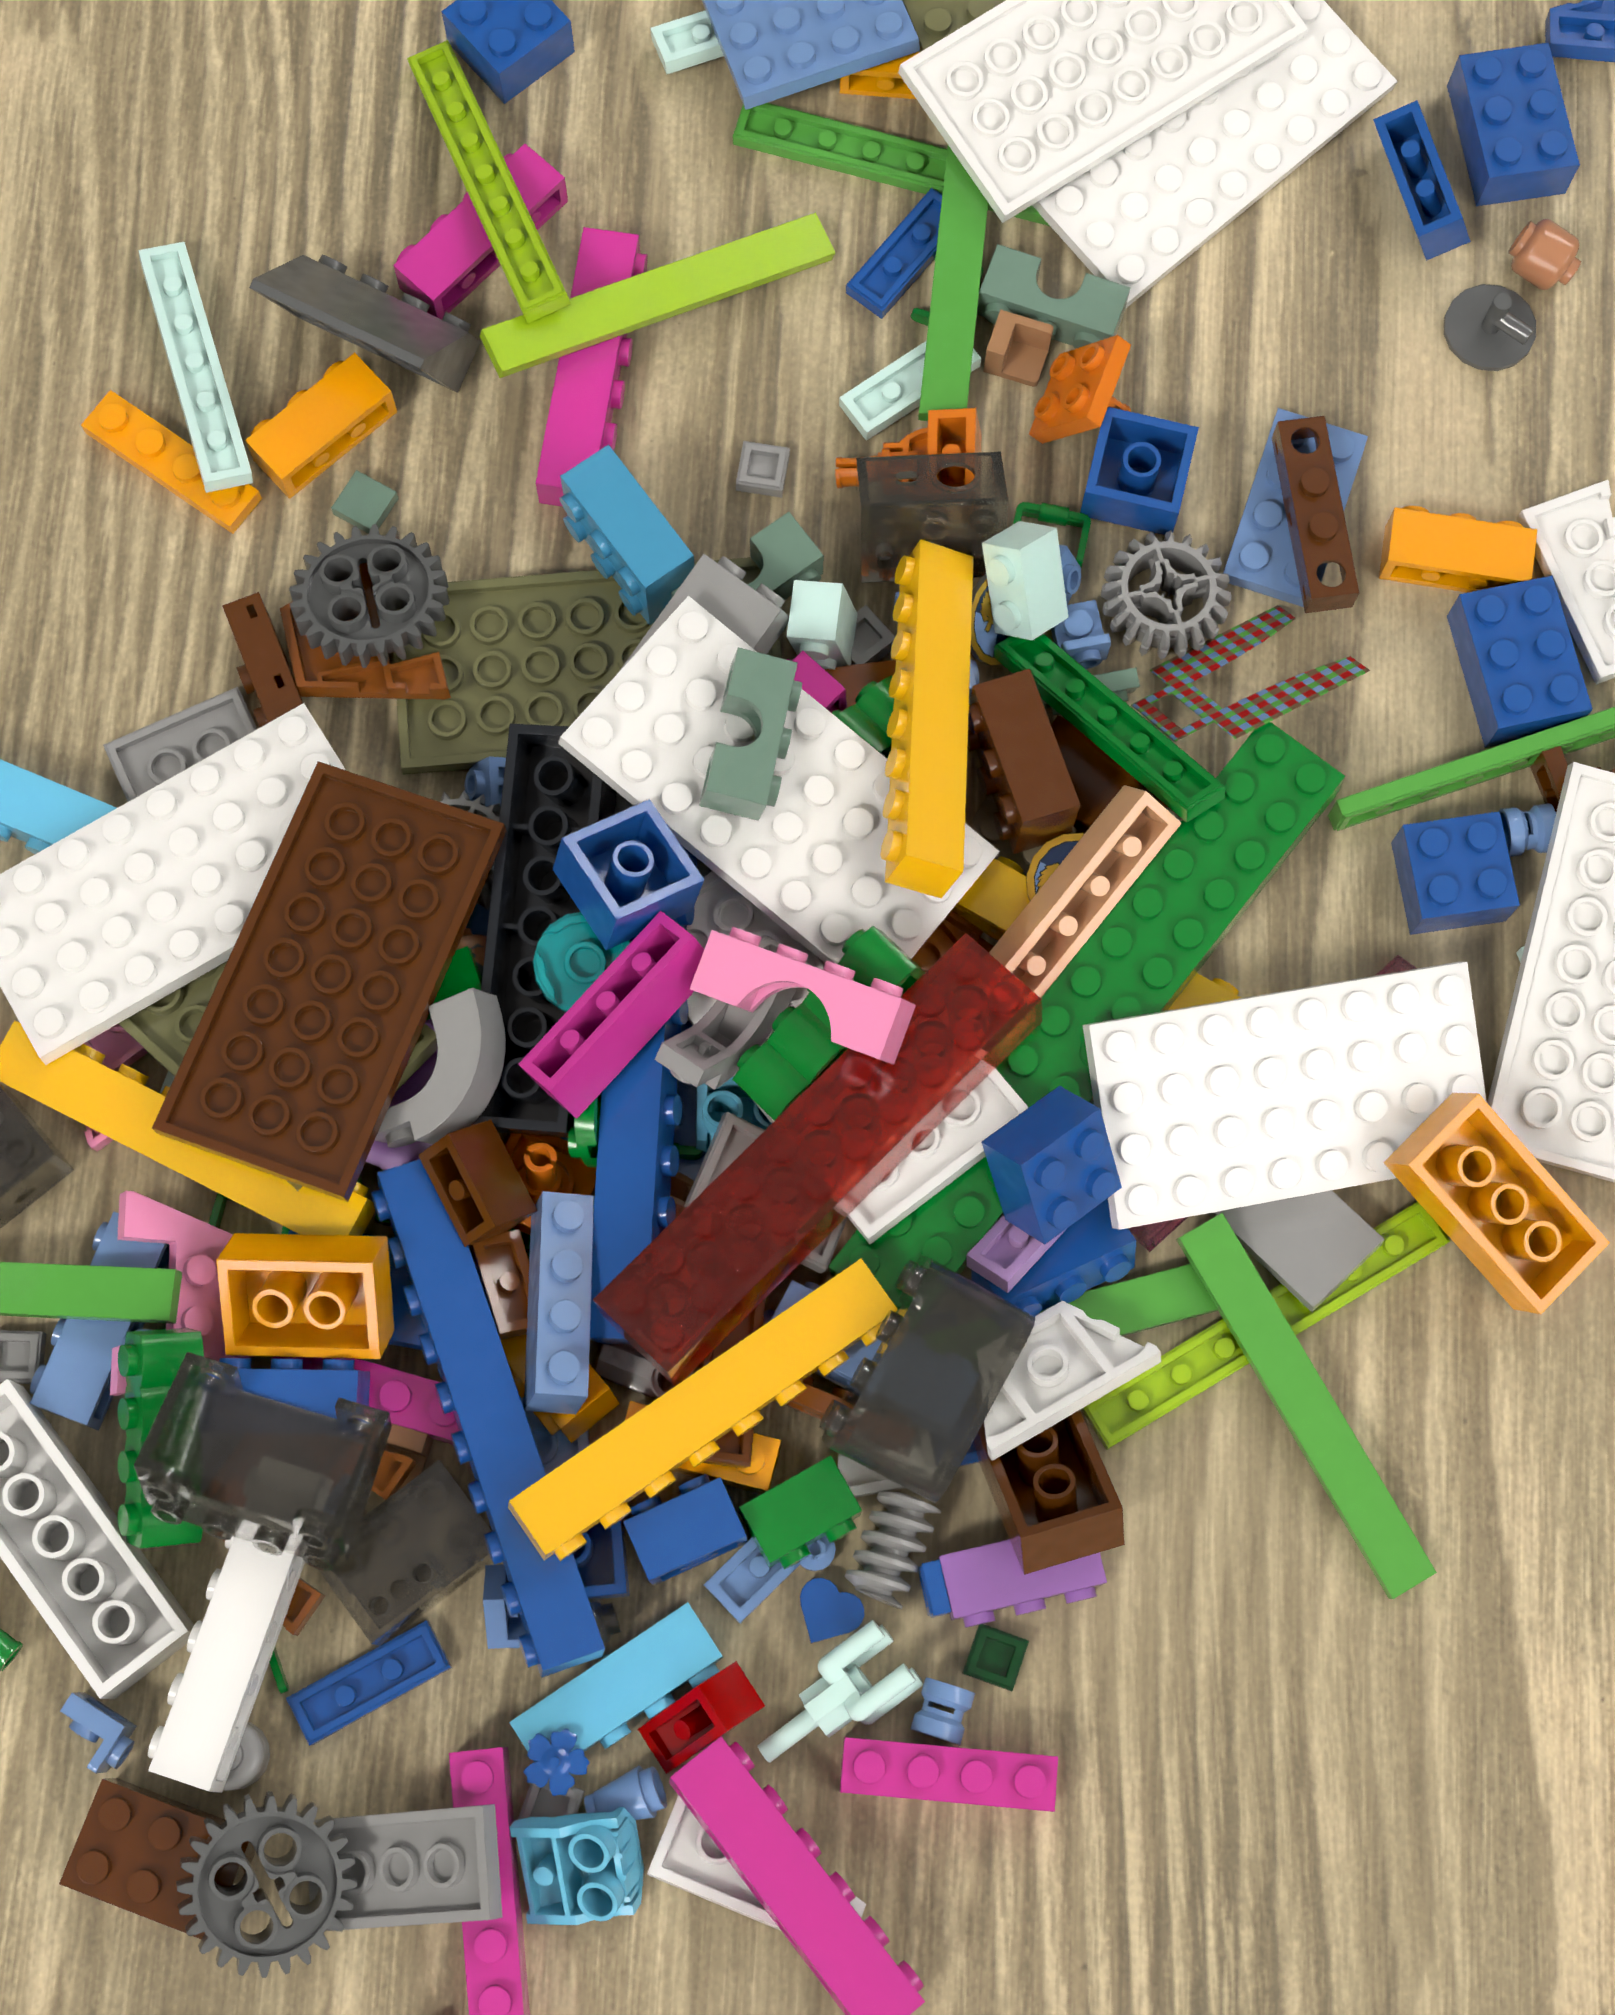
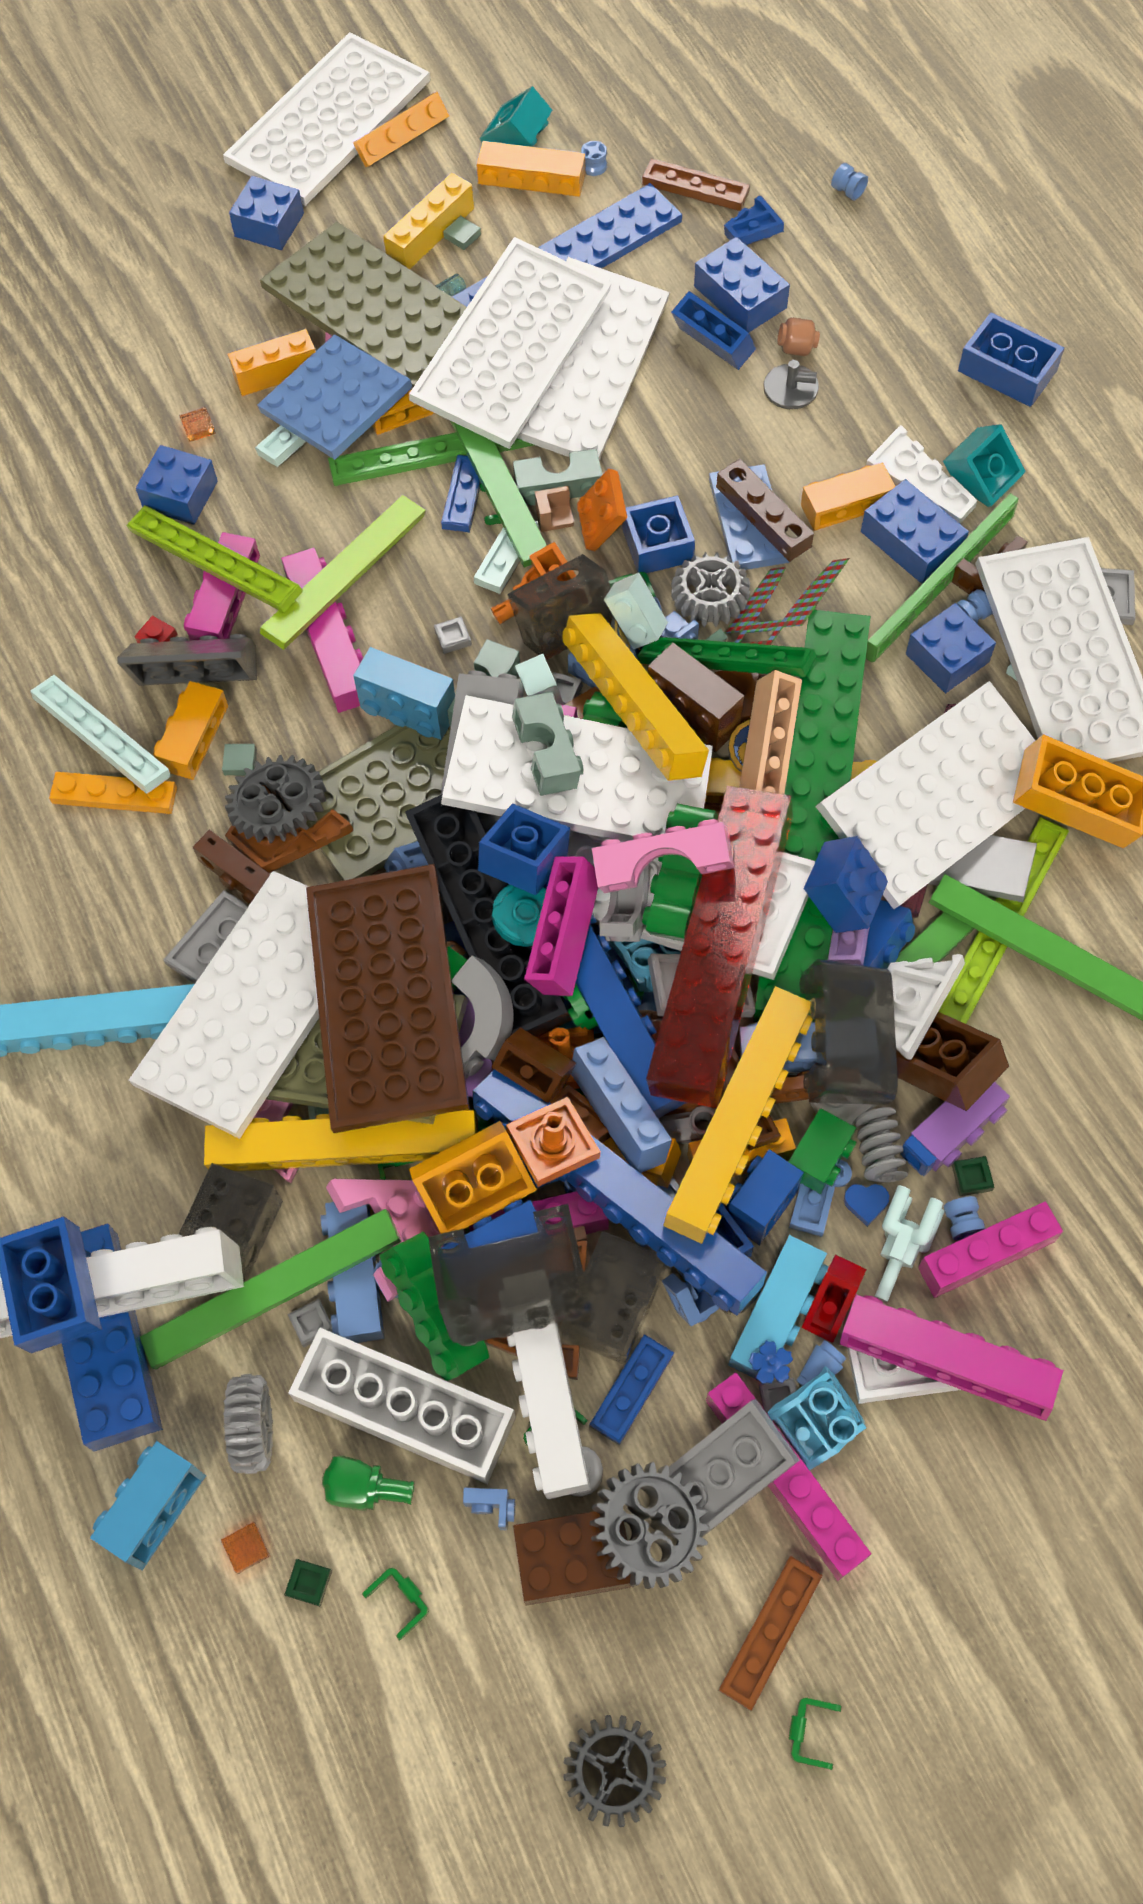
camera: 25 degrees left, 10 degrees down
(357, 250) = (156, 629): none -> red plate
(432, 1308) = (553, 1141): none -> orange plate

